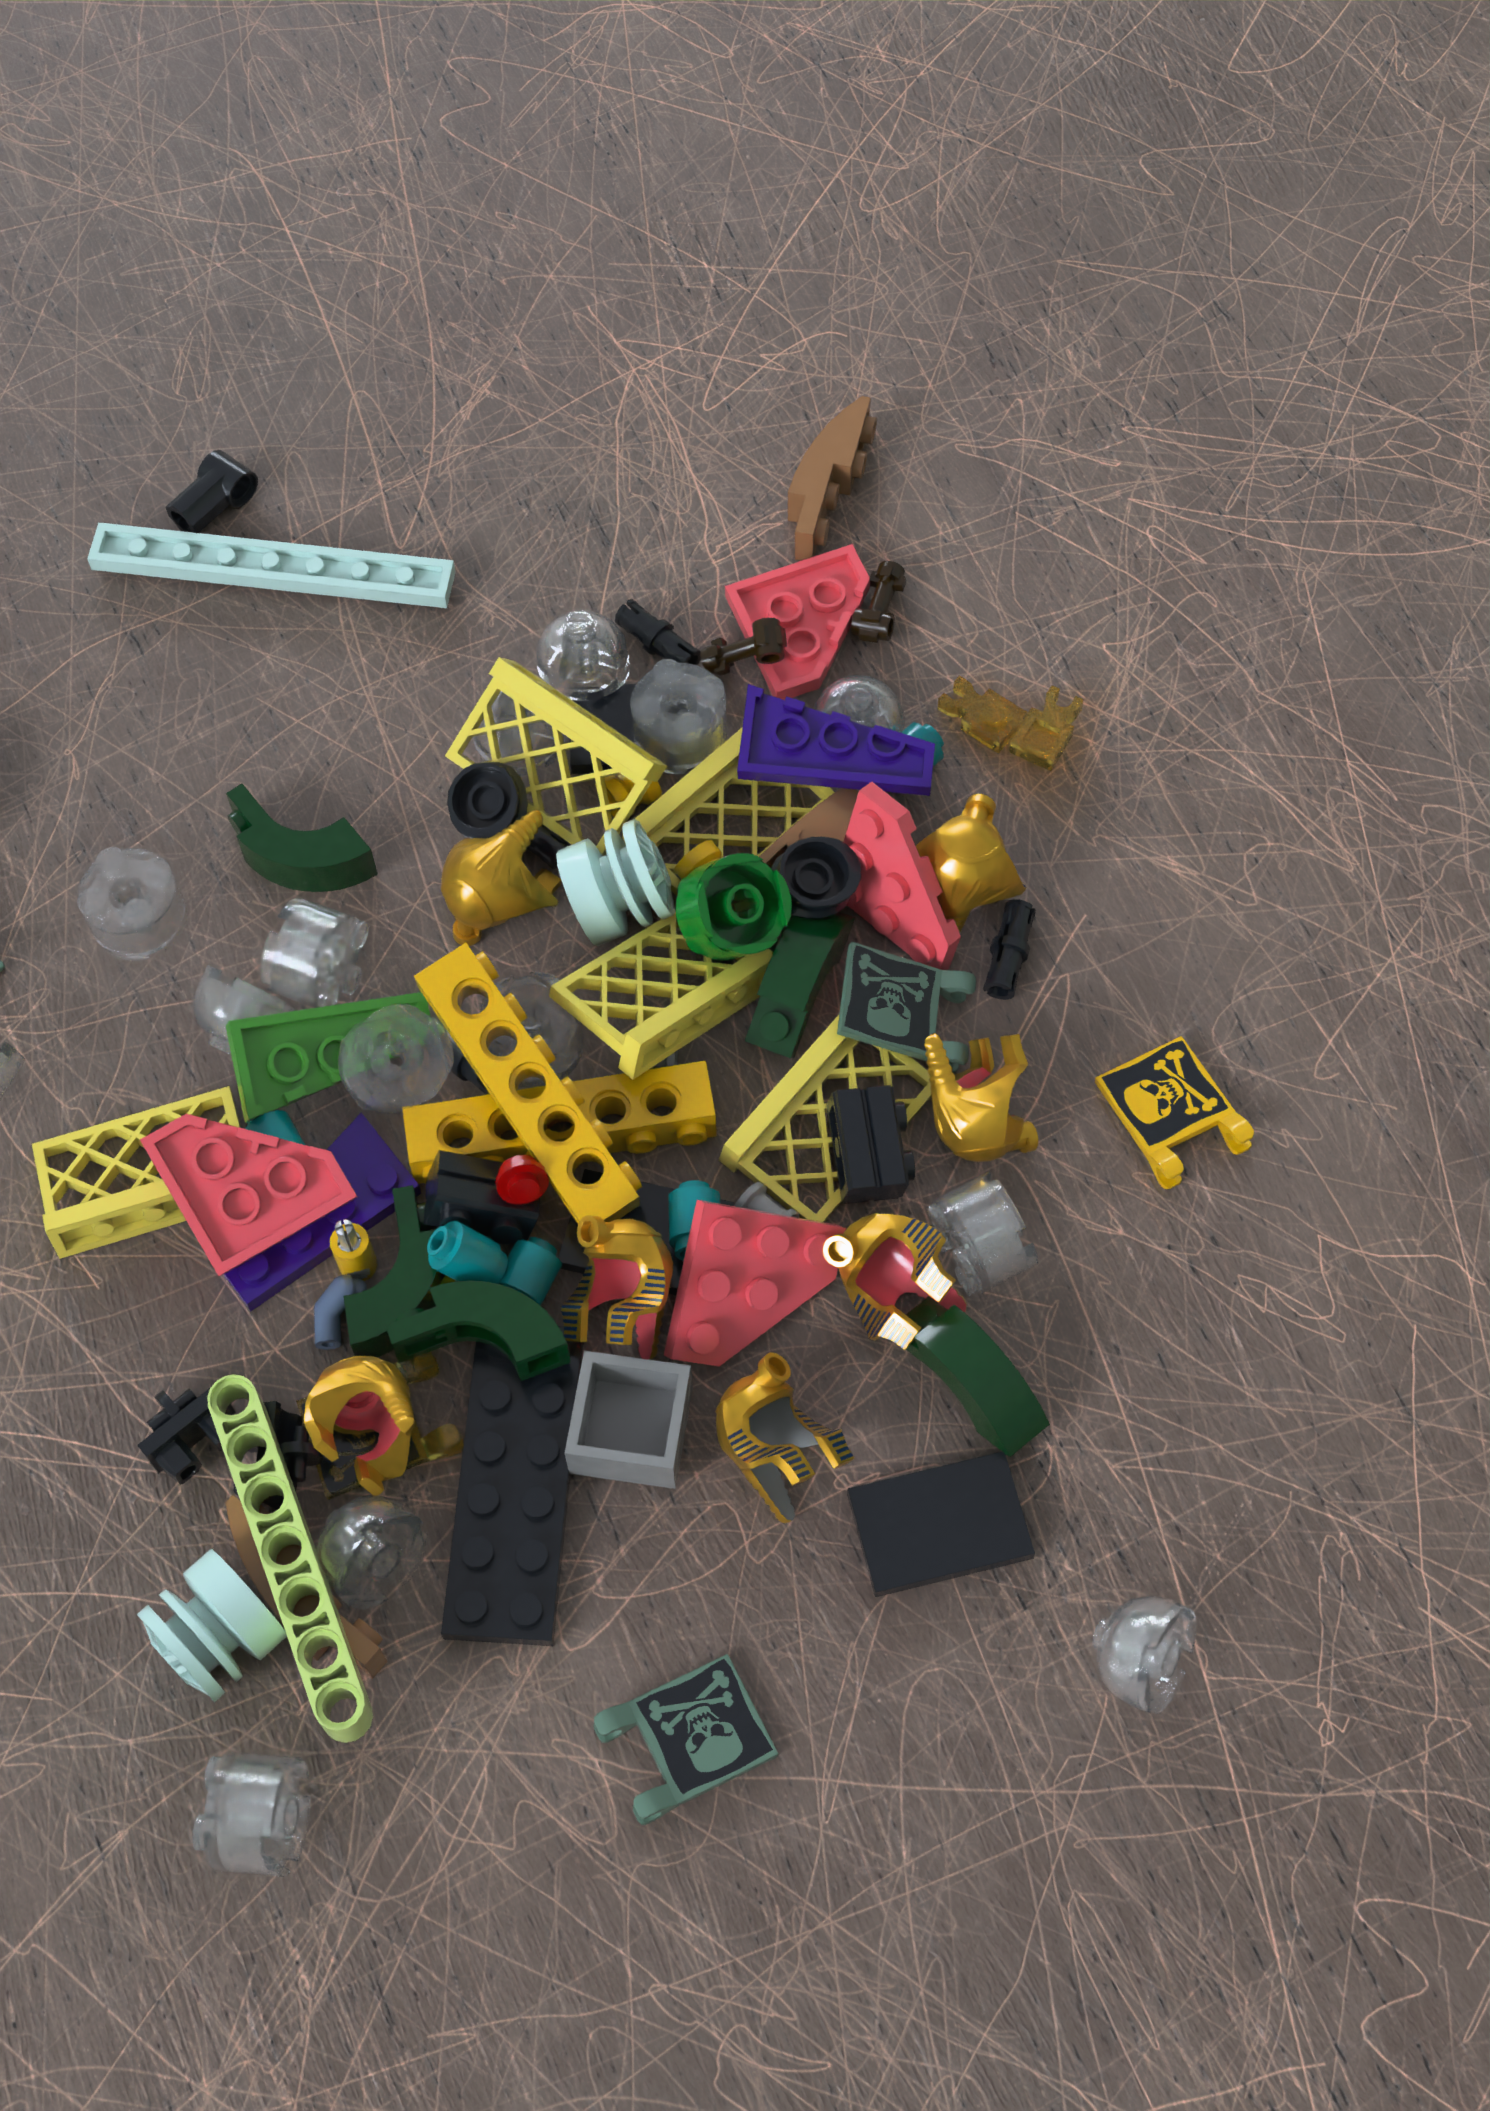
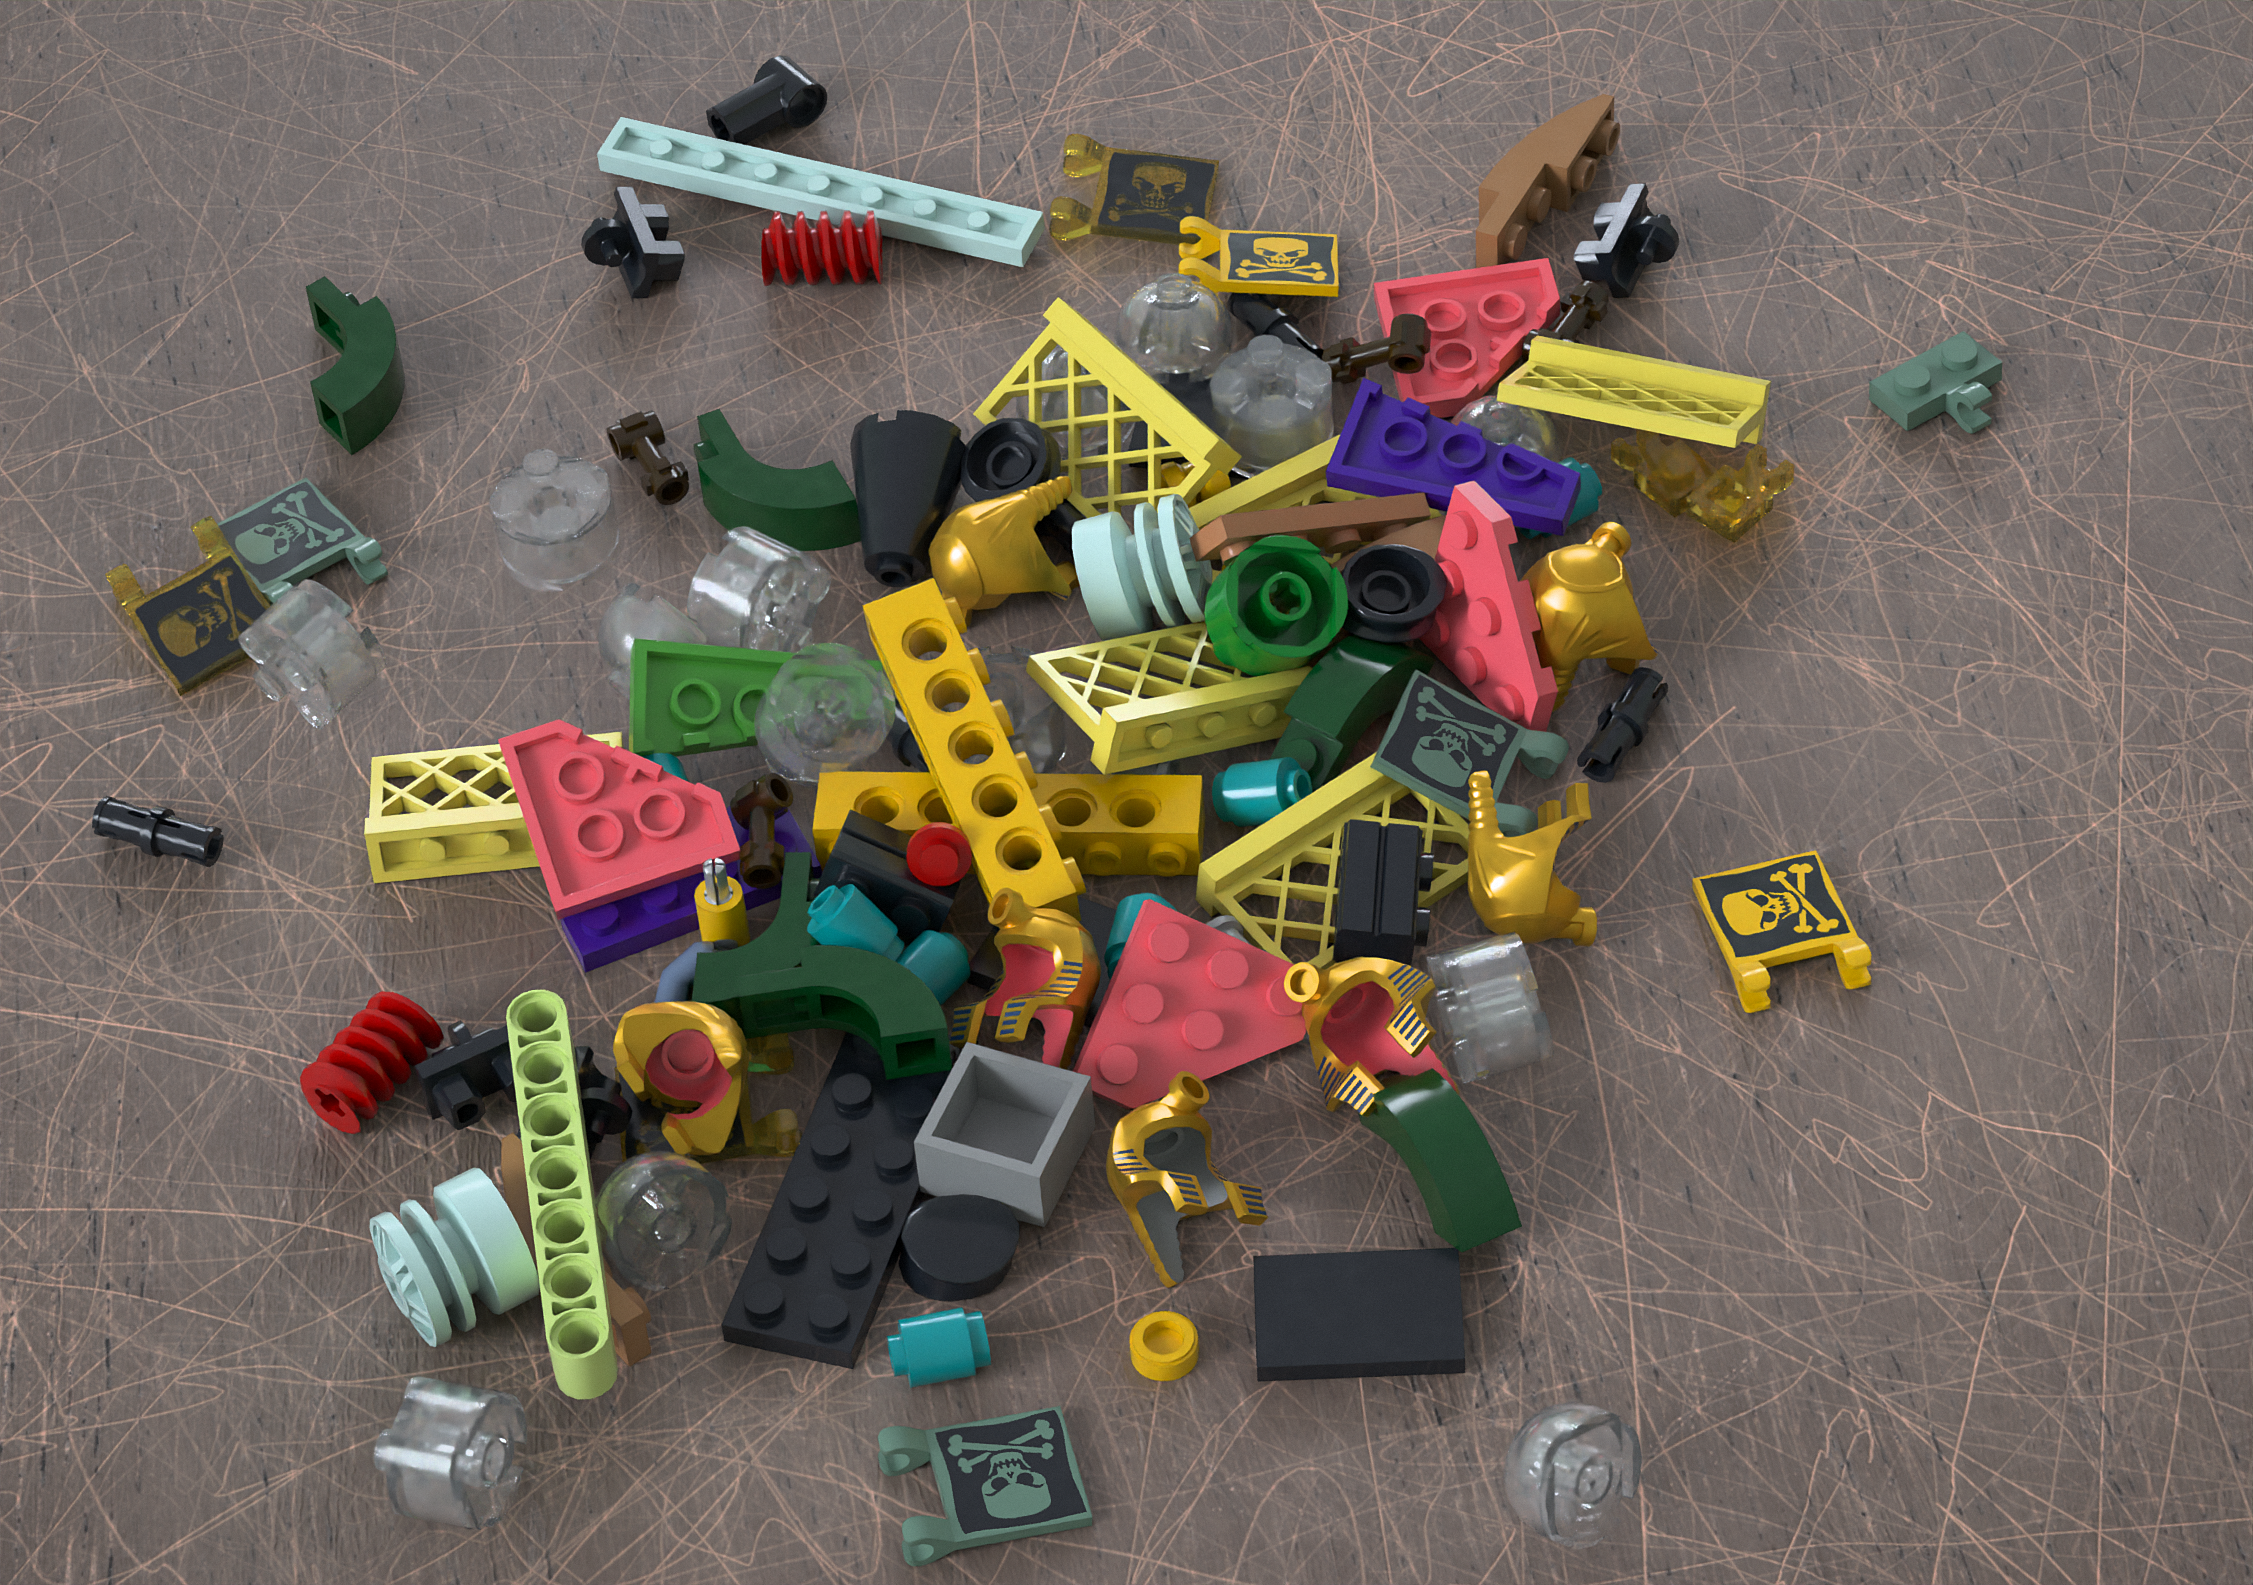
camera: 15 degrees right, 15 degrees down
(95, 1437) = (368, 1060): none -> red piece
(130, 636) = (635, 243): none -> black hips
(181, 811) = (639, 438): none -> dark brown bar
(287, 618) = (822, 248): none -> red piece
(359, 1150) = (756, 809): none -> dark brown bar
(407, 836) = (904, 490): none -> black cone
(523, 530) = (1136, 193): none -> clear yellow flag
(613, 1521) = (958, 1247): none -> black piece
(621, 1623) = (939, 1347): none -> teal brick
(633, 578) = (1261, 260): none -> yellow flag
(728, 837) = (1326, 525): none -> nougat plate
(752, 1062) = (1259, 790): none -> teal brick
(795, 1581) = (1164, 1346): none -> yellow tile
(913, 518) = (1626, 242): none -> black hips
(956, 657) = (1639, 392): none -> light yellow fence
(1169, 605) = (1941, 379): none -> sand green plate

